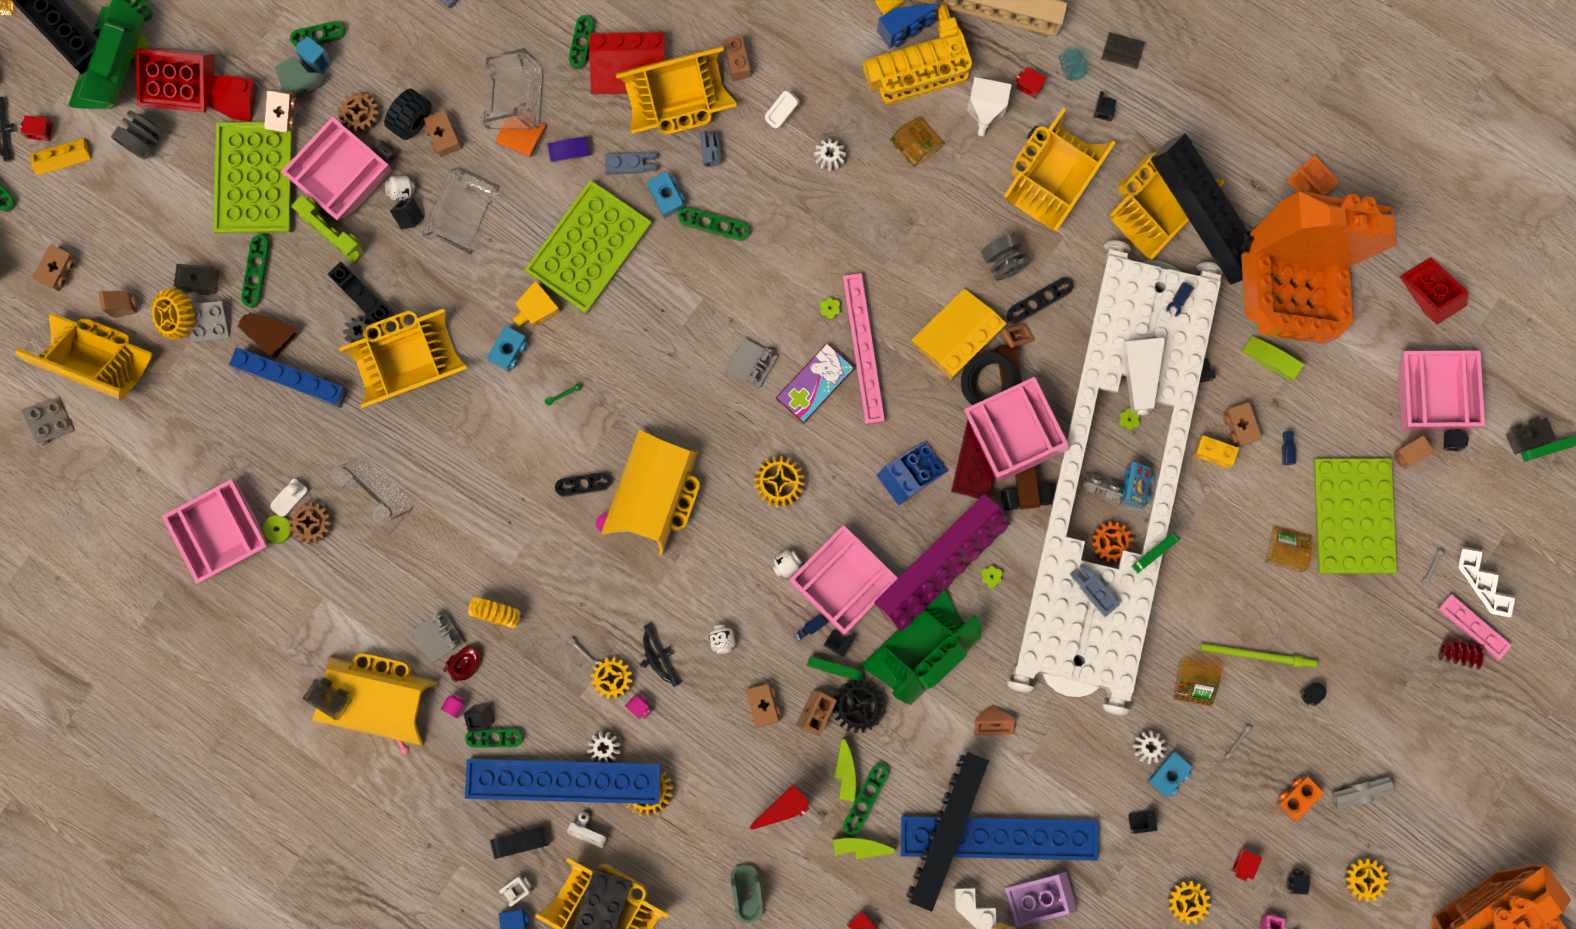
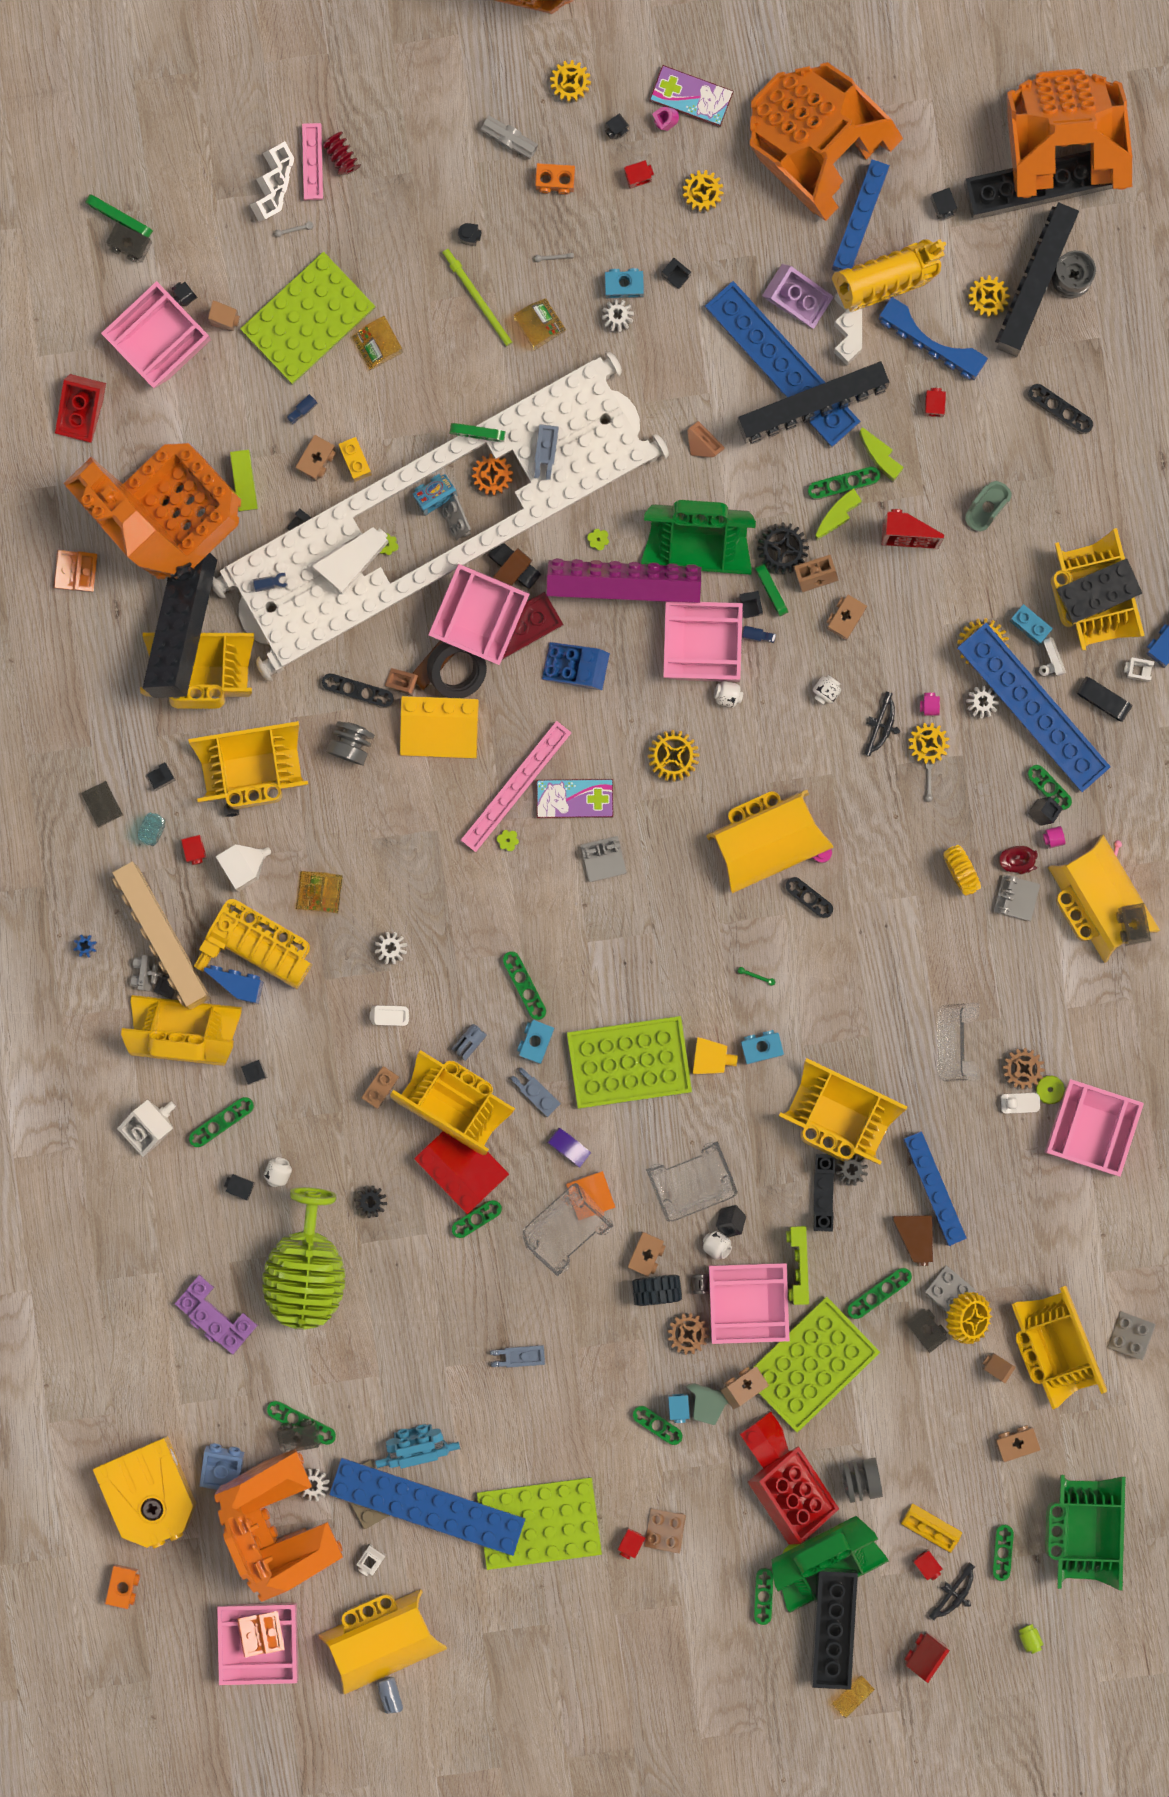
camera: 125 degrees left, 5 degrees up
(626, 839) = (1031, 624): none -> dark azure brick

